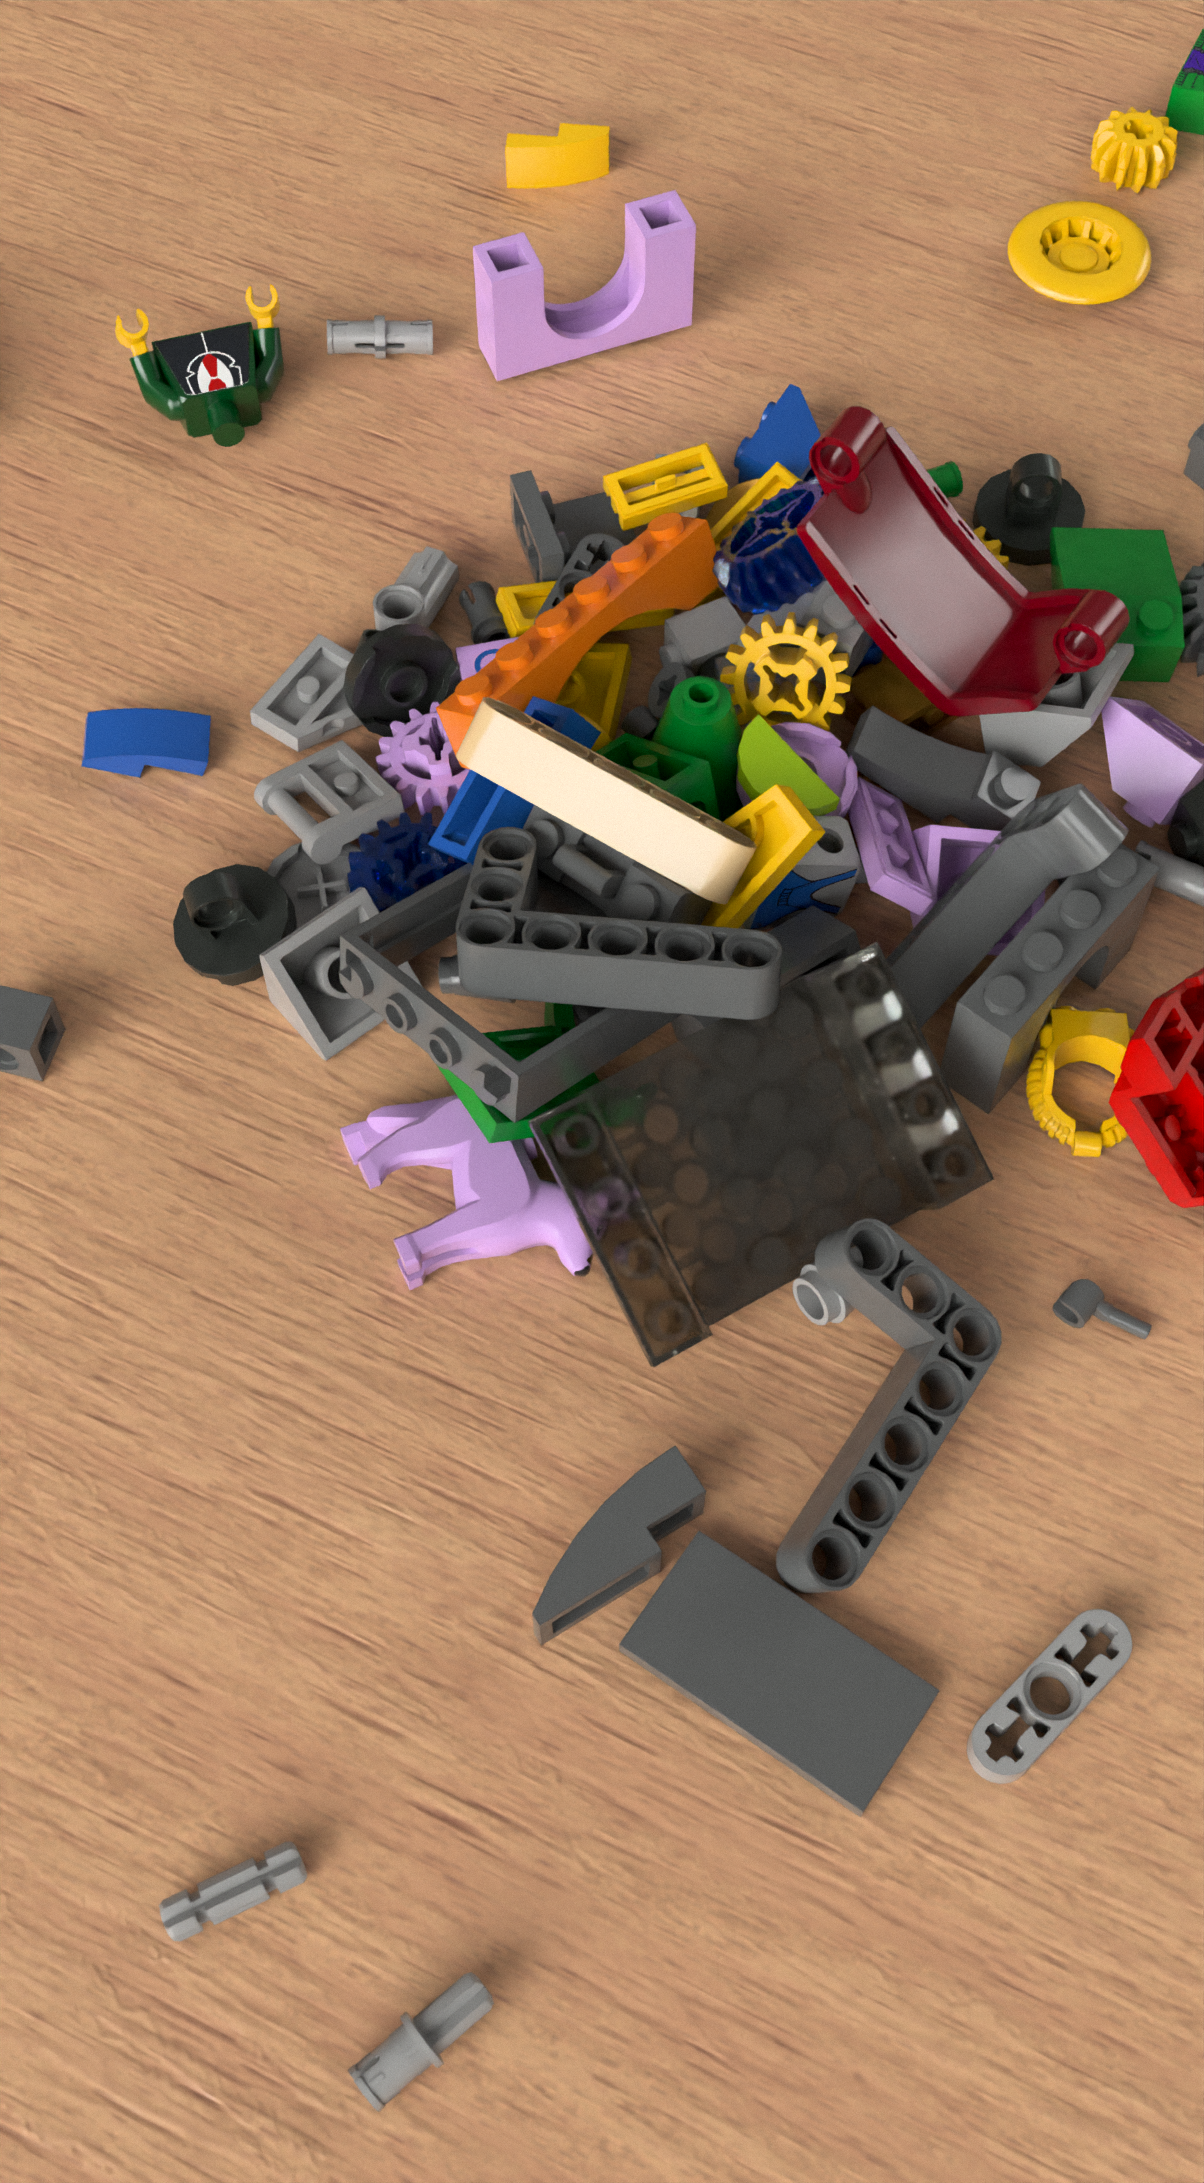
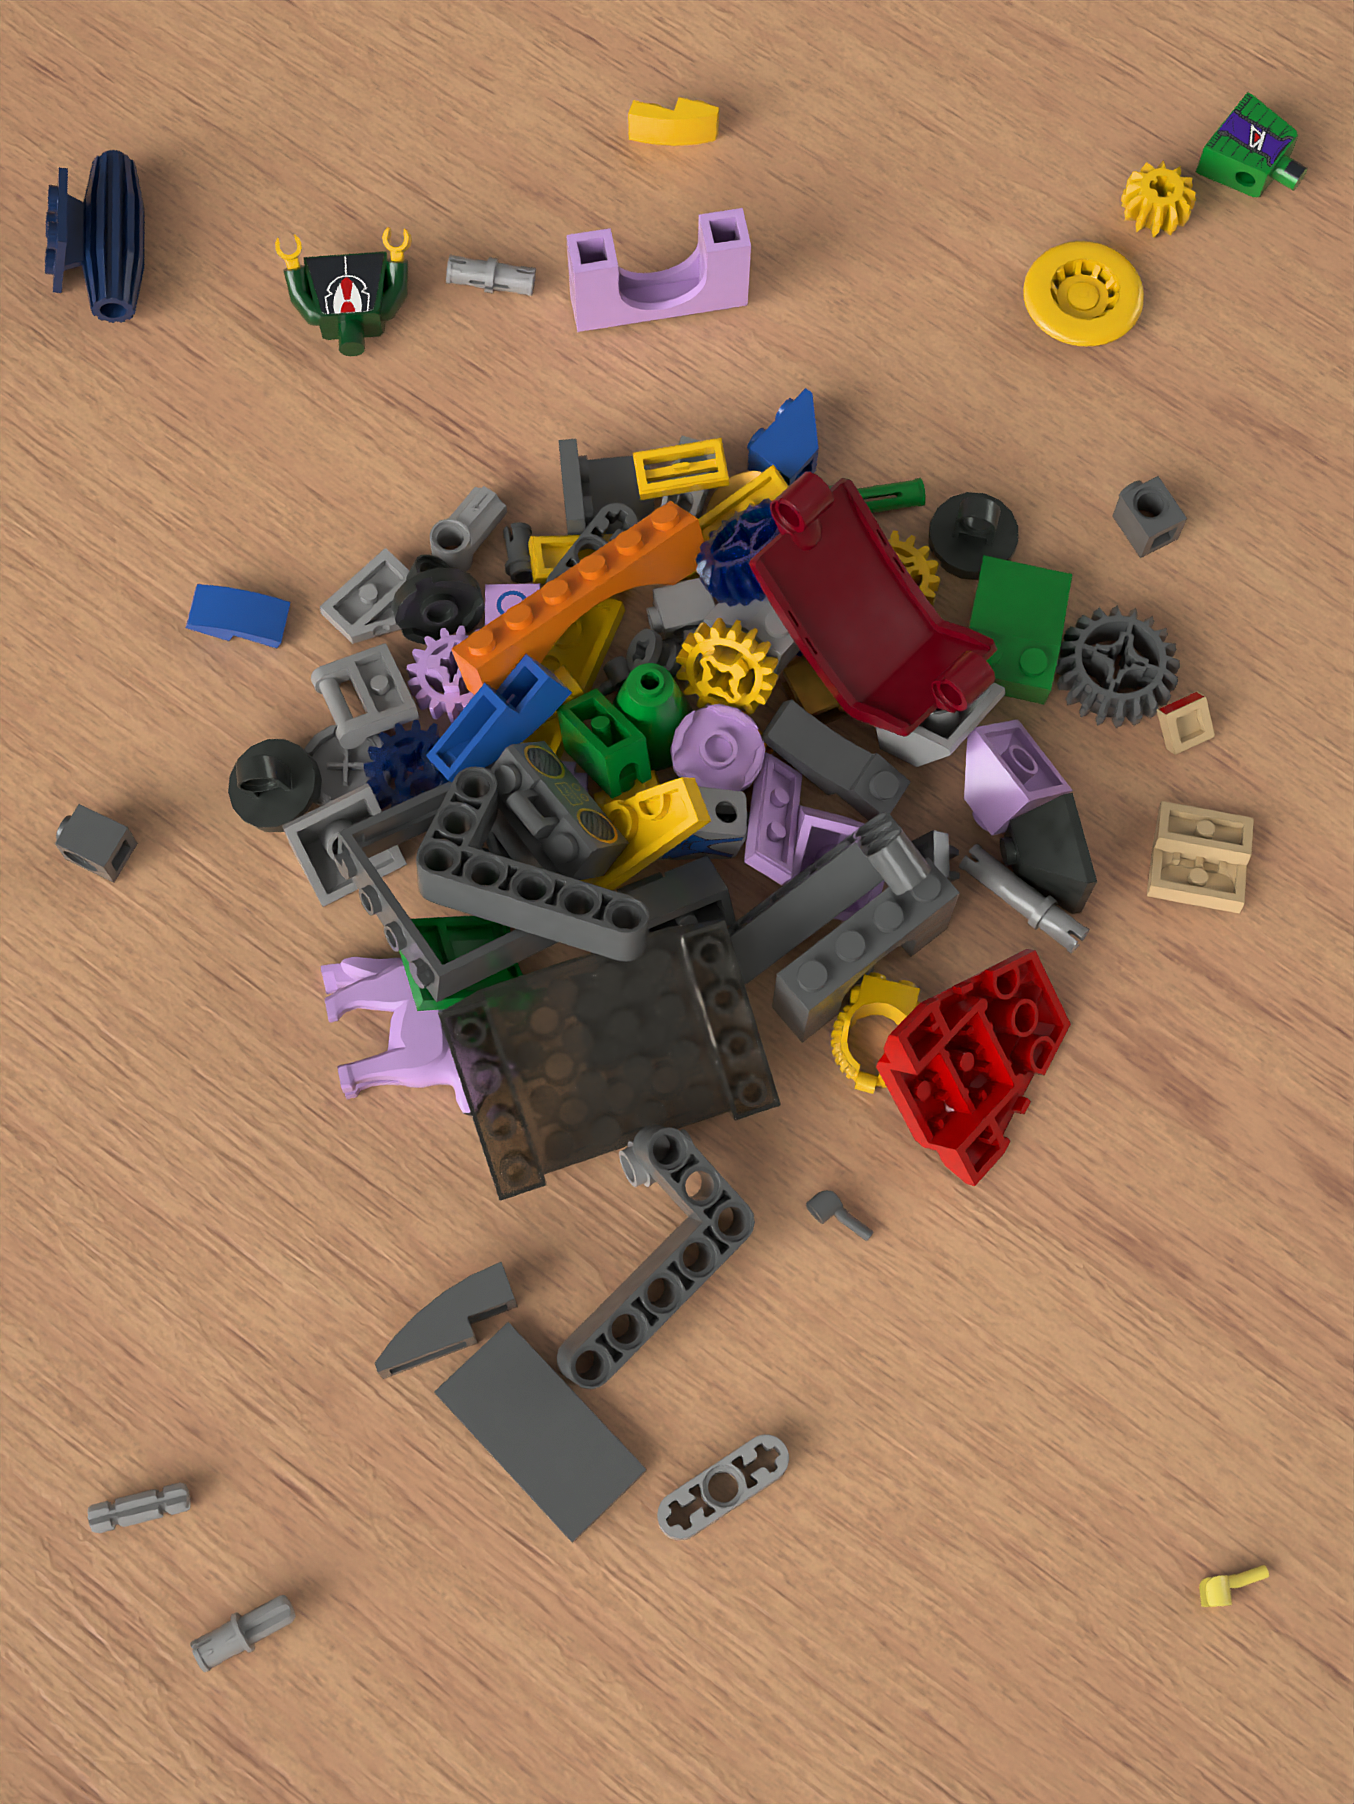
camera: 10 degrees right, 10 degrees up
(606, 801) = (554, 762): beam -> none
(768, 760) = (698, 751): lime tile -> none

